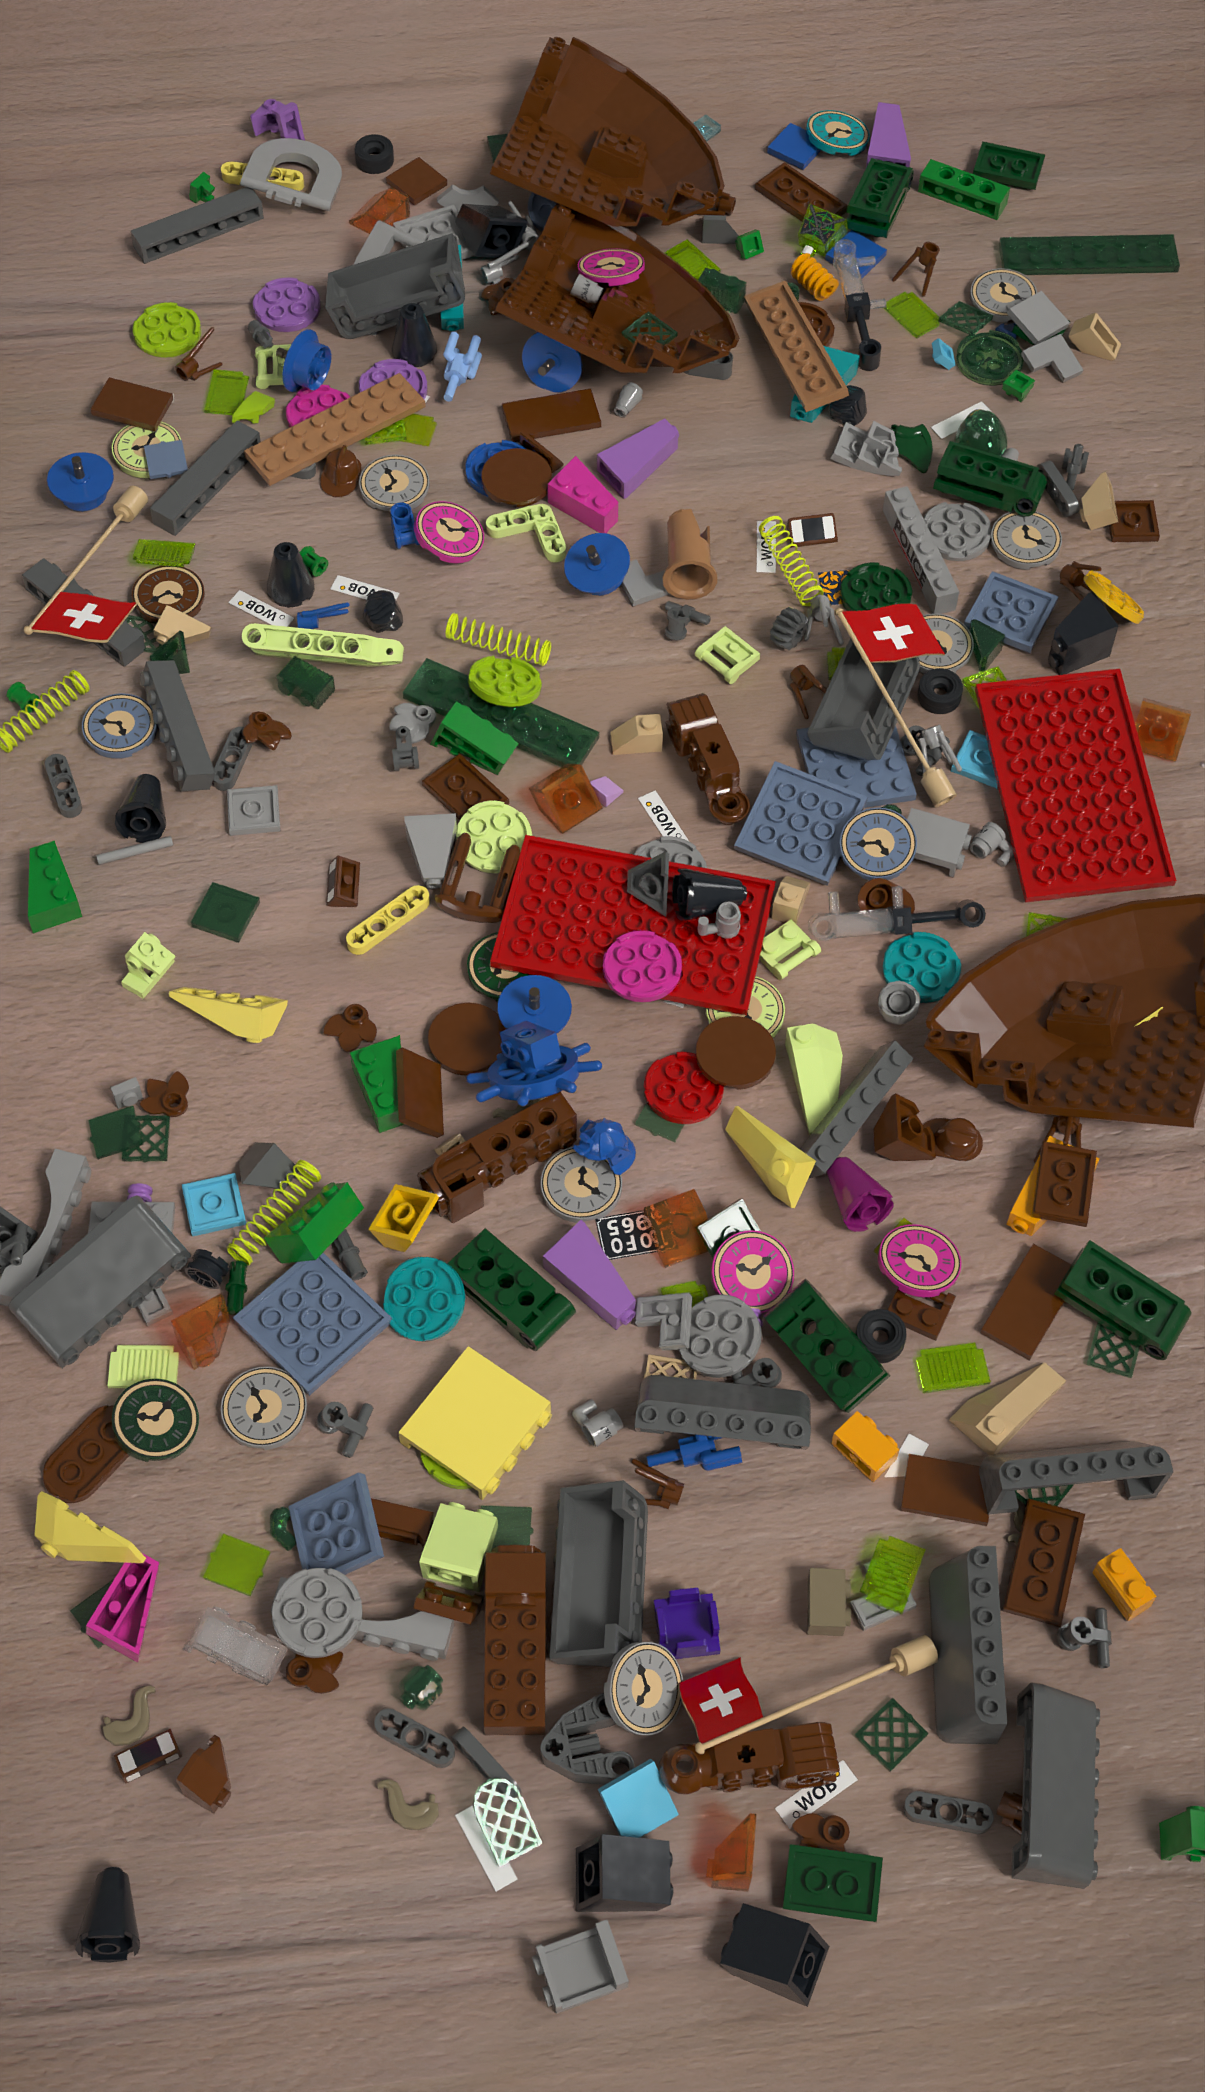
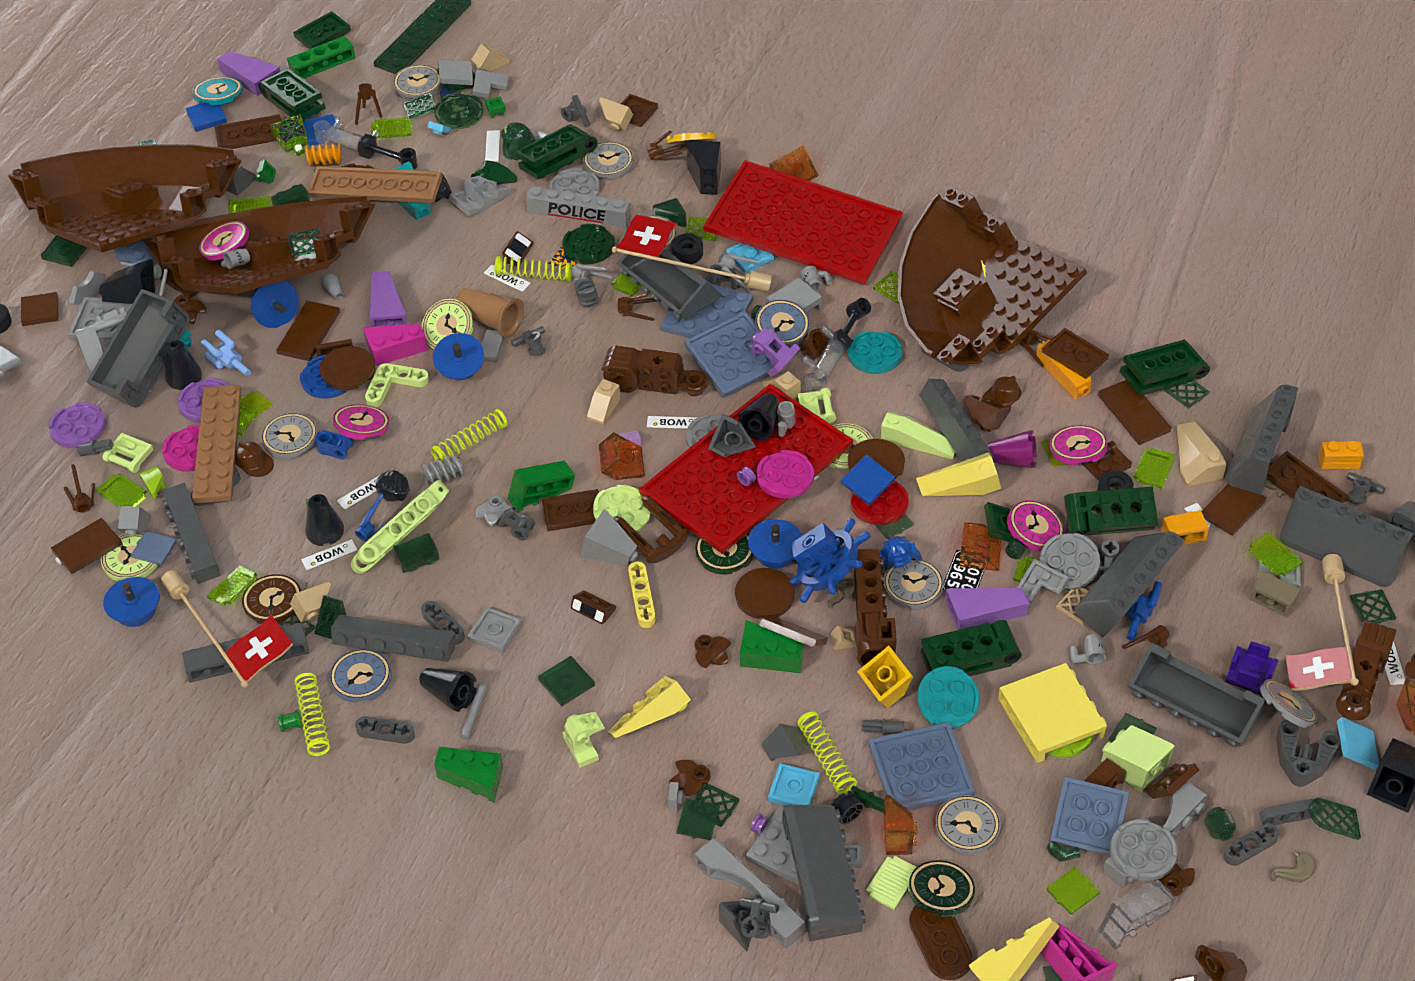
camera: 55 degrees left, 10 degrees down
(167, 330) = (33, 501): lime tile -> none
(184, 421) = (133, 520): none -> light grey slope
(266, 730) = (436, 592): reddish brown plate -> none
(305, 362) = (154, 427): blue piece -> none
(315, 1224) = (856, 731): green wedge -> none
(354, 1428) = (1007, 781): dark grey piece -> none
(385, 206) = (50, 337): clear orange slope -> none
(433, 642) = (443, 469): none -> light grey piece
(497, 1875) = (1338, 841): white sticker -> none
(505, 681) = (506, 447): lime tile -> none
(515, 1641) = (1221, 756): reddish brown brick -> none
(530, 725) = (496, 477): clear green plate -> none
(606, 927) = (746, 476): none -> medium lavender bush
(642, 526) = (446, 318): none -> tile
(693, 1056) = (867, 480): none -> blue tile
(701, 1268) = (1014, 550): none -> clear green axle
(731, 648) = (577, 327): yellowish green plate -> none
(822, 870) = (778, 359): none -> medium lavender tile
(898, 1002) = (896, 370): light grey hair -> none
(1013, 610) = (655, 188): sand blue plate -> none
(1059, 489) = (597, 132): dark grey beam -> none

